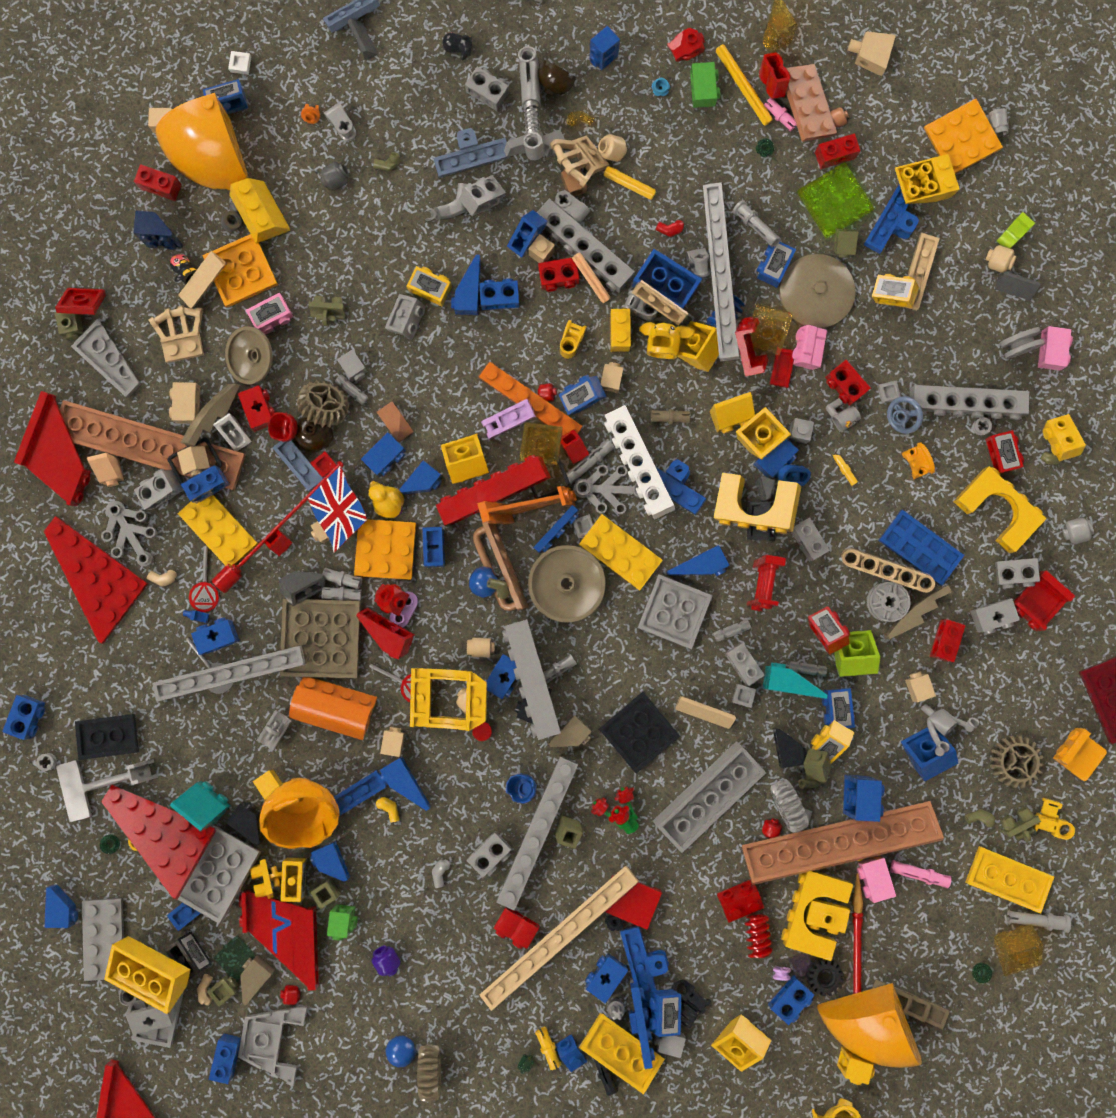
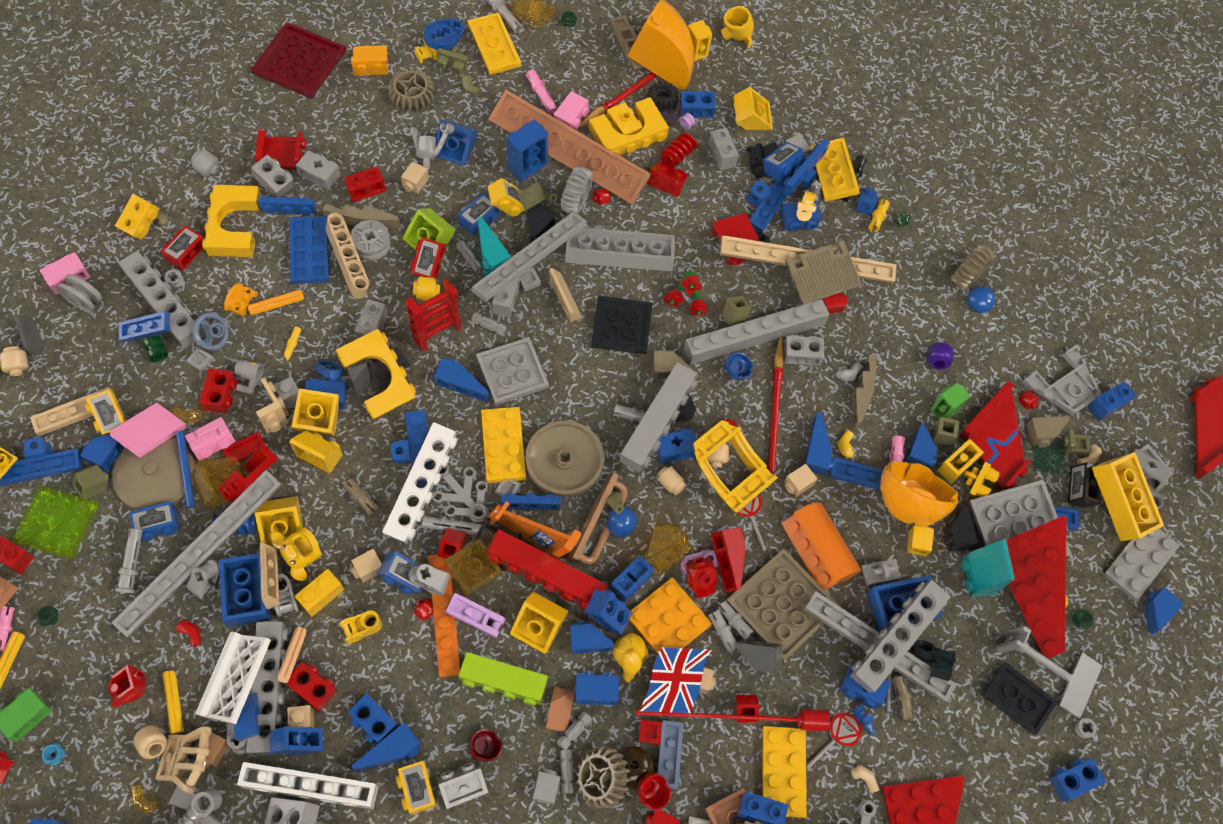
camera: 140 degrees left, 20 degrees down
(180, 709) = (943, 659): none -> black piece
(184, 656) = (903, 698): none -> dark tan pin
(209, 680) = (935, 599): none -> light grey brick
(238, 722) = (889, 598): none -> blue brick
(344, 838) = (897, 449): none -> bright pink pin
(371, 417) = (574, 730): none -> light grey axle
(410, 346) = (482, 739): none -> dark red hair
(410, 859) = (862, 396): none -> dark tan slope
(425, 508) = (608, 611): none -> blue brick
(432, 591) = (667, 547): none -> clear yellow slope
(447, 399) = (503, 678): none -> lime brick
(486, 810) = (777, 378): none -> red piece
(492, 220) = (308, 785): none -> white brick
(534, 935) = (823, 272): none -> dark tan window
(560, 407) = (429, 578): none -> light grey piece
(572, 213) = (247, 723): none -> blue slope
(604, 984) = (806, 206): none -> yellow hips
(611, 220) = (223, 679): none -> white fence
(665, 161) = (126, 685): none -> red hand
(726, 976) = (723, 149): none -> light grey brick
(758, 708) = (528, 256): none -> light grey plate
(790, 412) = (275, 414): none -> tan bracket
(799, 312) = (189, 496): none -> blue piece
(804, 606) = (425, 288): none -> yellow head
(845, 346) = (187, 416): none -> clear yellow arm
(855, 309) = (147, 429): none -> bright pink tile
(865, 268) = (102, 452): none -> blue slope
(893, 485) = (275, 302): none -> light orange axle
(925, 365) = (155, 348): none -> dark green wheel
(950, 369) = (144, 326): none -> plate
(978, 562) = (287, 205): none -> blue plate
(1065, 837) = (450, 28): none -> blue piece

